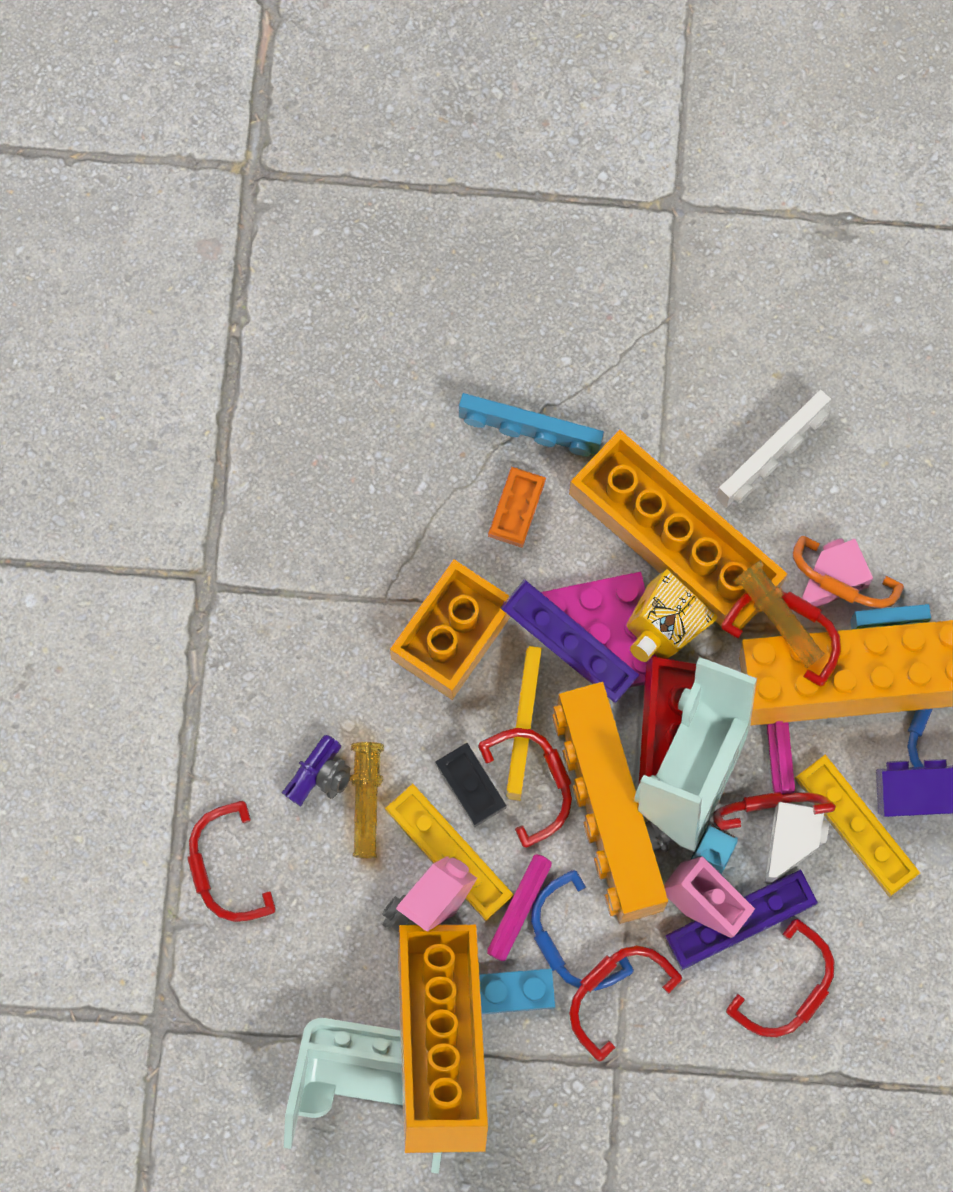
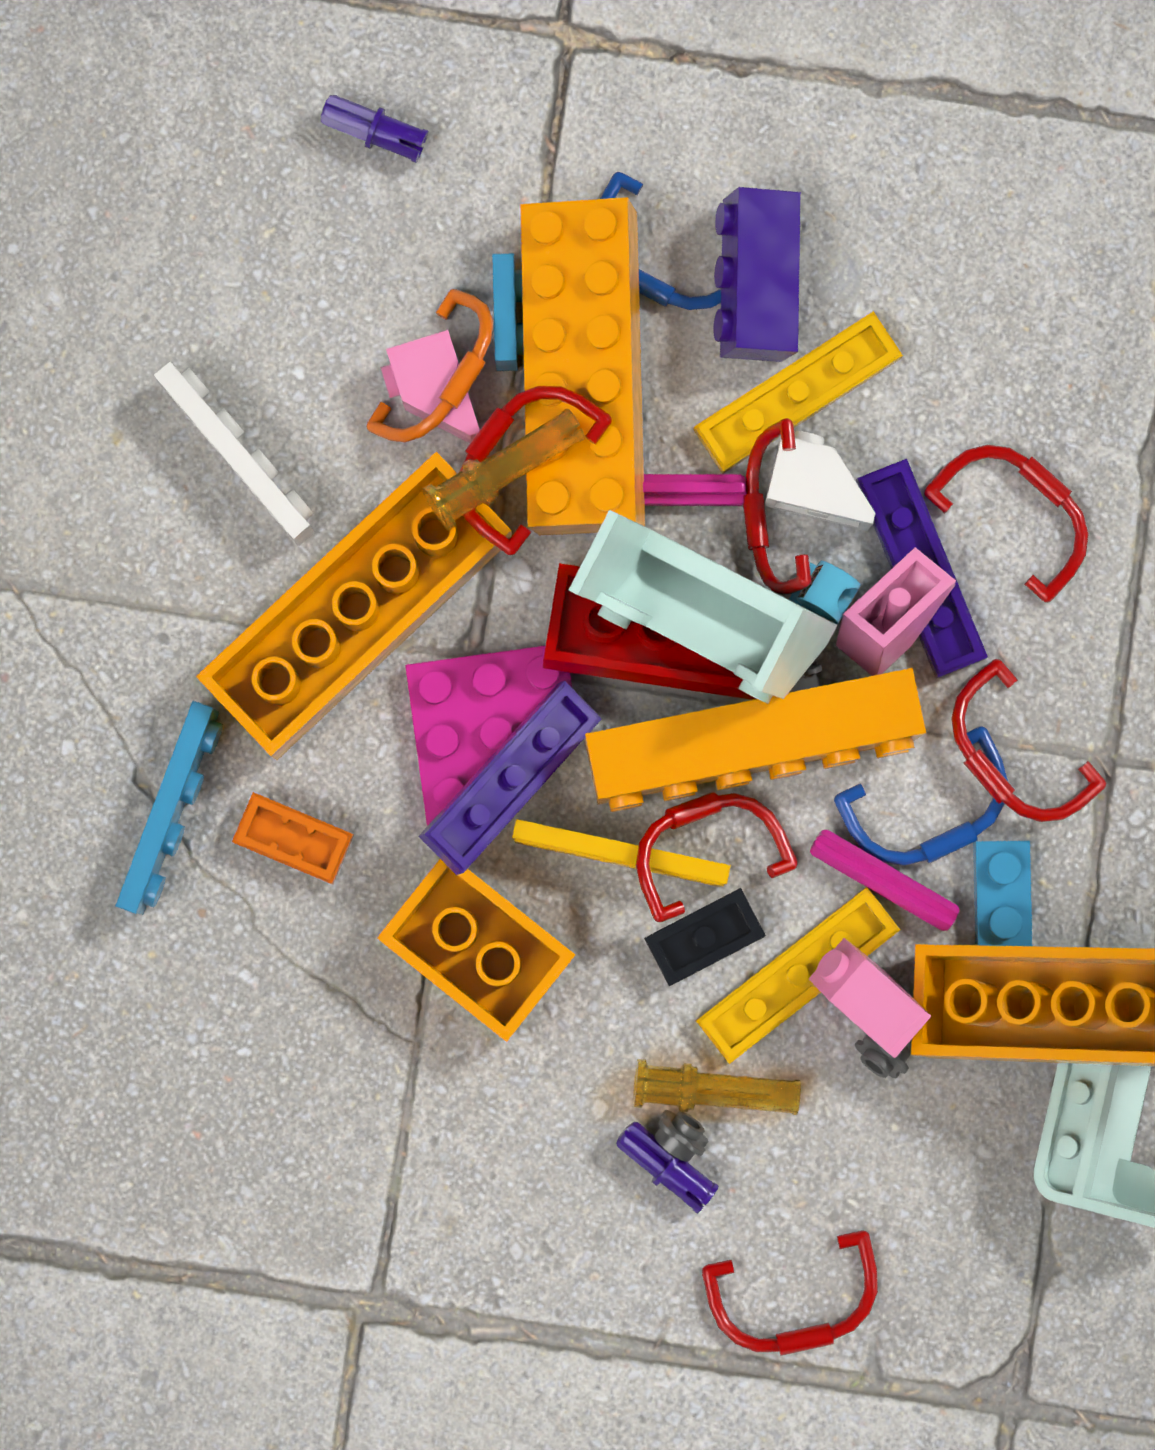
camera: 85 degrees left, 10 degrees up
(667, 618) = (485, 633): yellow torso -> none

